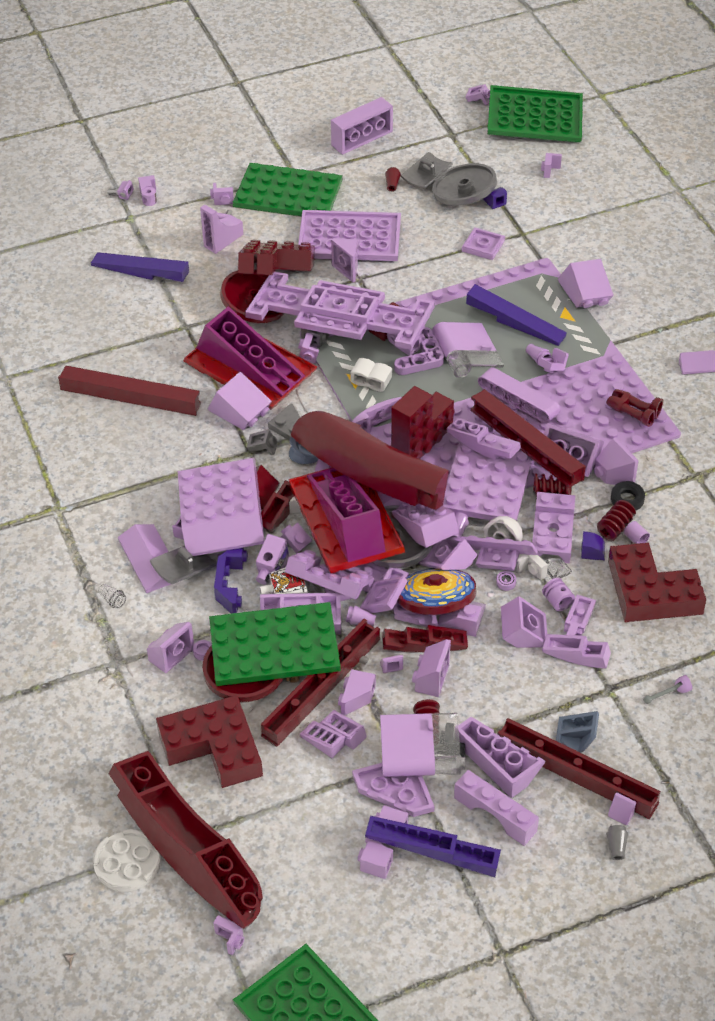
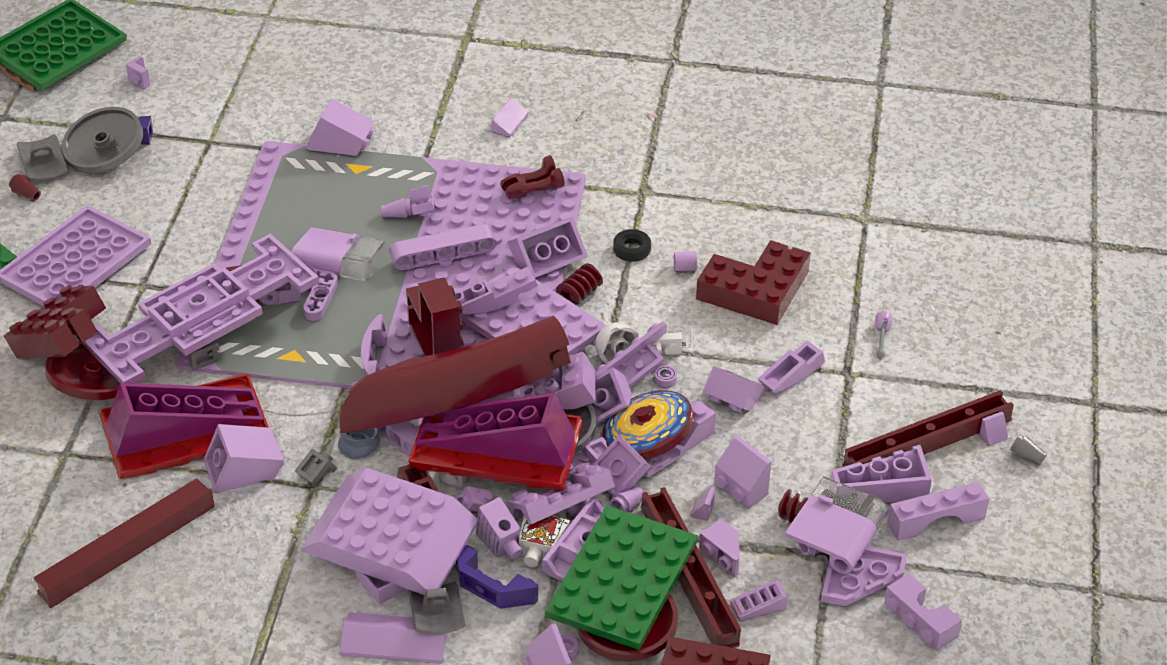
camera: 60 degrees left, 5 degrees down
(284, 421) = (305, 435): flat silver wing -> none
(308, 353) = (214, 368): lavender bracket -> none
(345, 256) = (116, 272): lavender slope -> none
(353, 736) = (762, 571): lavender slope -> none
(371, 374) = (306, 336): white brick -> none
(418, 639) = (695, 467): dark red slope -> none
(434, 844) = (957, 572): dark purple slope -> none
(483, 243) = (194, 173): lavender tile -> none
(513, 315) = (327, 200): dark purple slope -> none
(531, 440) = (541, 260): dark red tile -> none
(558, 513) = (610, 301): lavender piece -> none
(558, 593) = (718, 346): lavender piece -> none
(577, 730) = (887, 412): sand blue slope -> none
(579, 615) = (752, 347): lavender hinge -> none
(592, 547) = (675, 298): dark purple brick -> none
(616, 464) = (598, 225): lavender slope -> none
(616, 520) = (660, 265): dark red piece -> none

